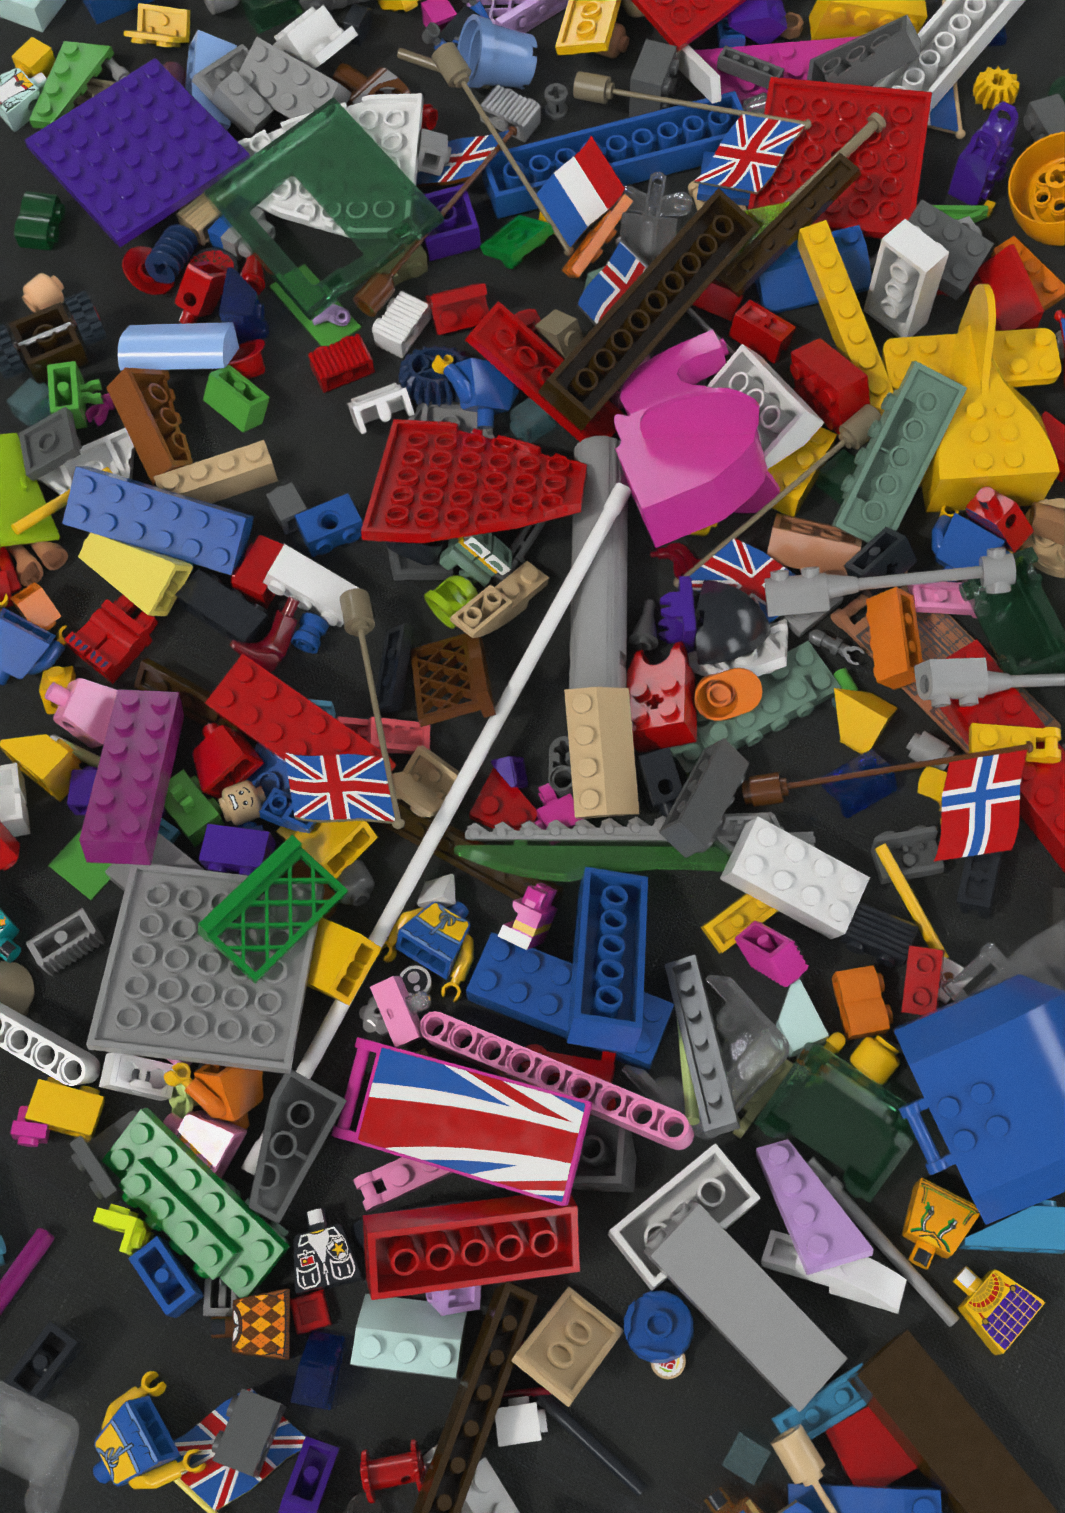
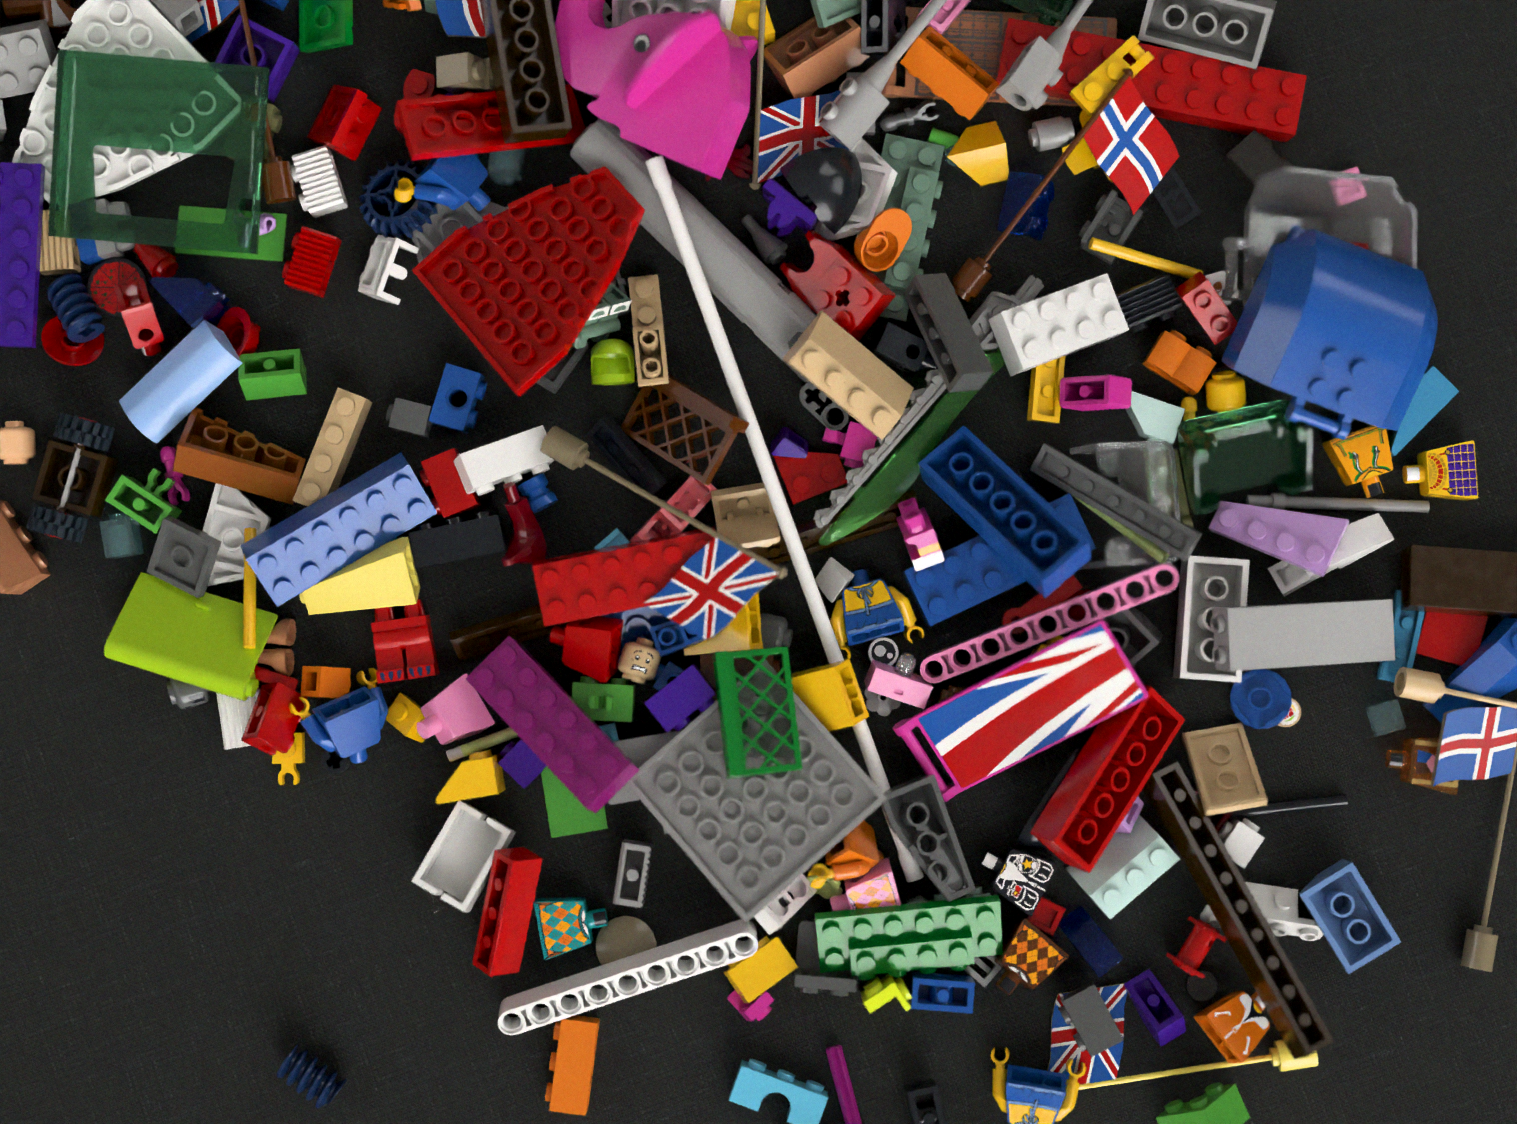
camera: 45 degrees left, 20 degrees up
(399, 1179) = (1012, 784): bright pink plate -> none

